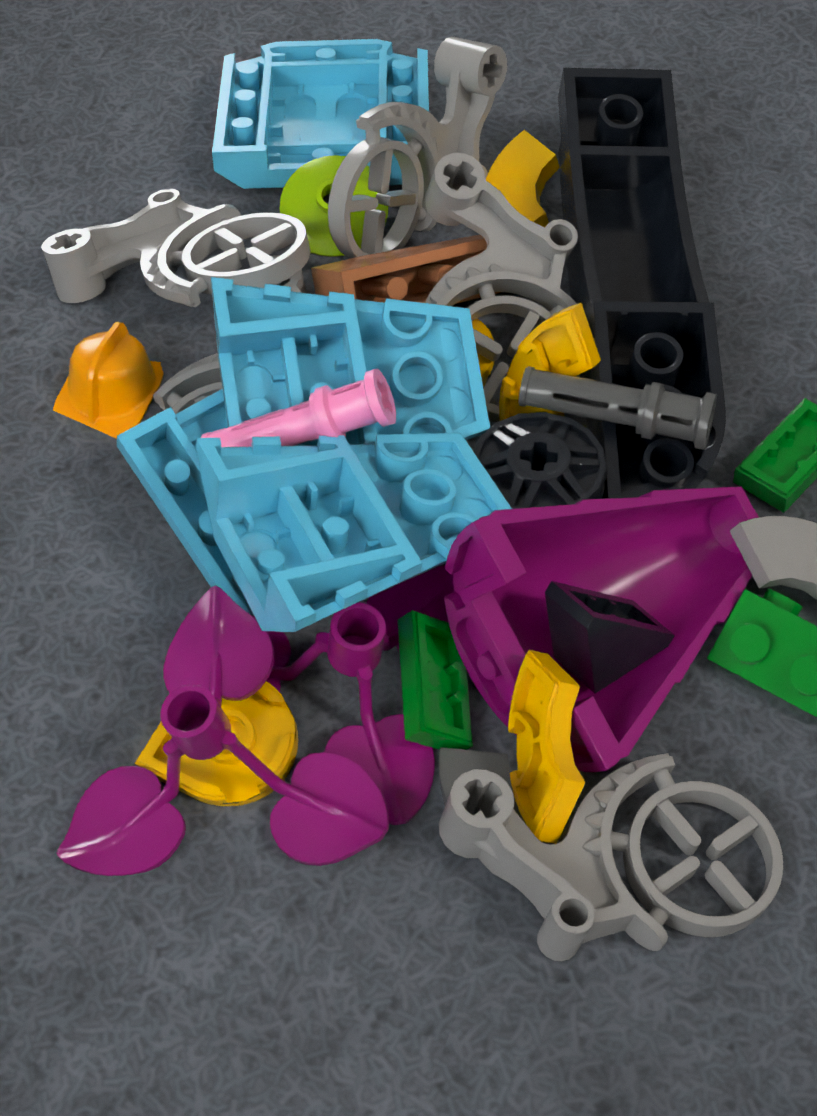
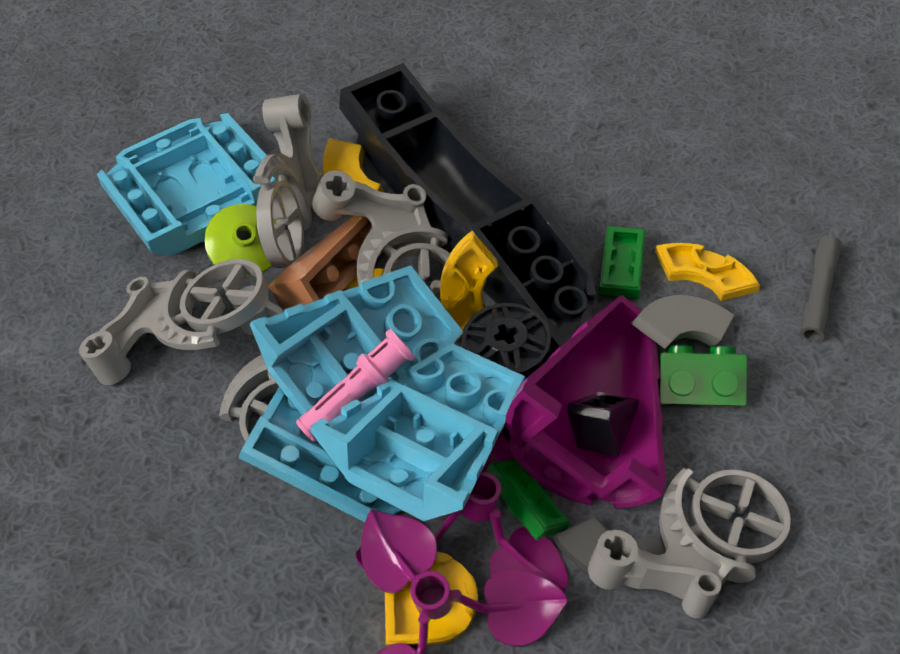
camera: 30 degrees left, 0 degrees up
(109, 382) = (183, 422): light orange piece -> none
(541, 717) = (619, 500): yellow tile -> none
(648, 410) = (546, 276): dark grey pin -> none

